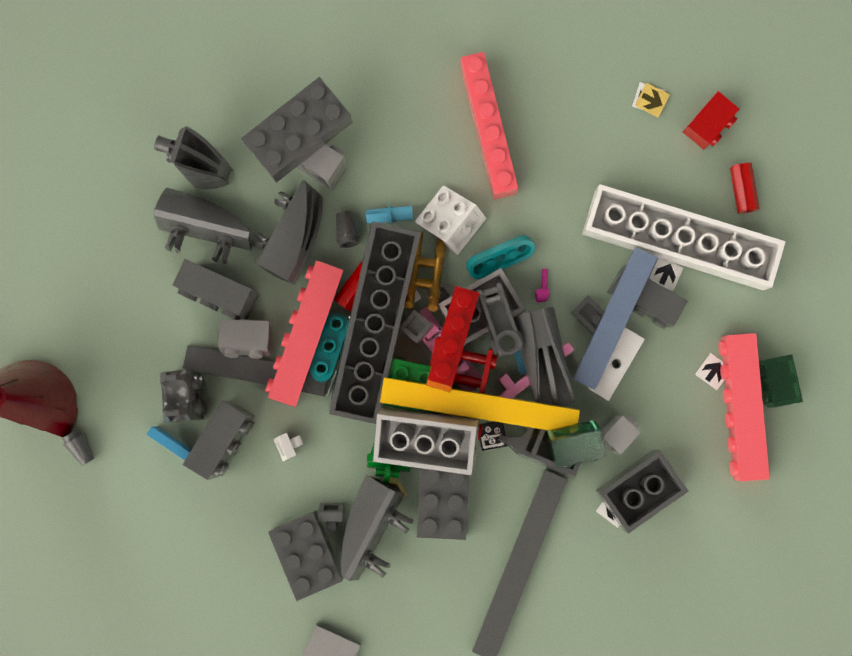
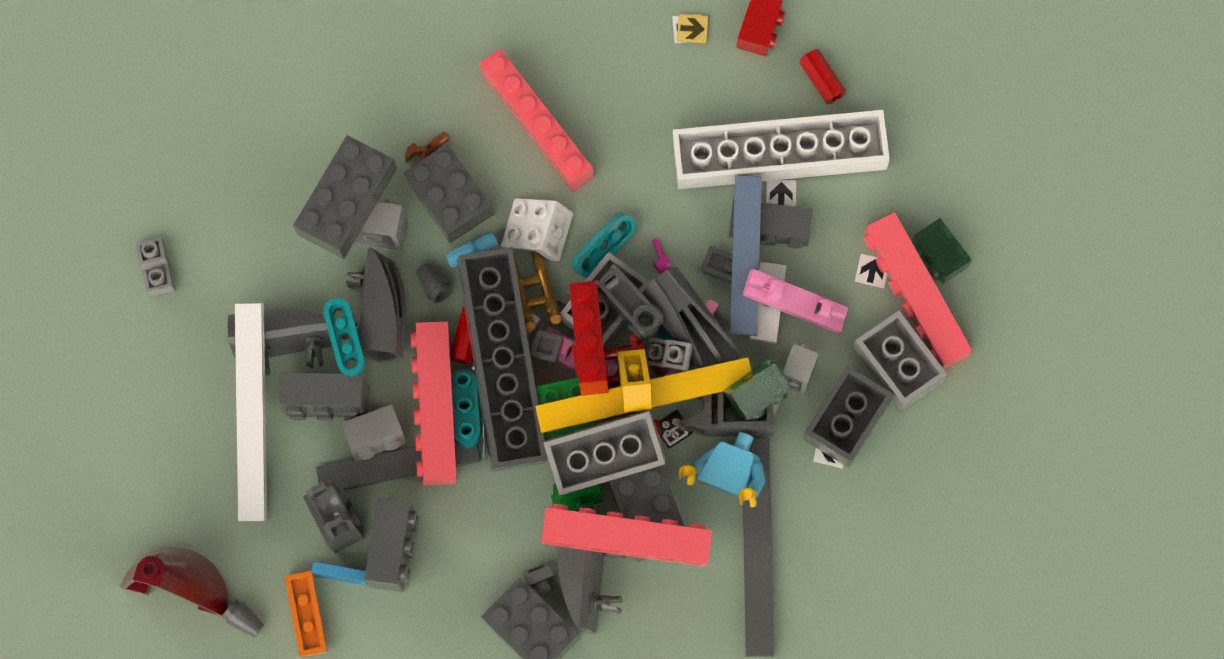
camera: 20 degrees left, 10 degrees down
(125, 120) = (155, 267): none -> light grey slope
(130, 464) = (306, 614): none -> orange plate
(150, 278) = (251, 412): none -> white tile
(195, 159) = (252, 268): dark grey piece -> none
(248, 240) = (337, 329): none -> teal plate
(286, 446) = (463, 526): white tile -> none
(386, 113) = (426, 150): none -> dark orange bar
(389, 158) = (448, 193): none -> dark grey brick
(413, 521) = (626, 536): none -> coral brick
(475, 393) = (634, 380): none -> yellow slope
(514, 378) = (668, 354): none -> light grey slope
(524, 495) = (729, 469): none -> medium azure torso
(638, 373) = (794, 301): none -> bright pink hinge
(705, 462) = (900, 360): none -> light grey brick

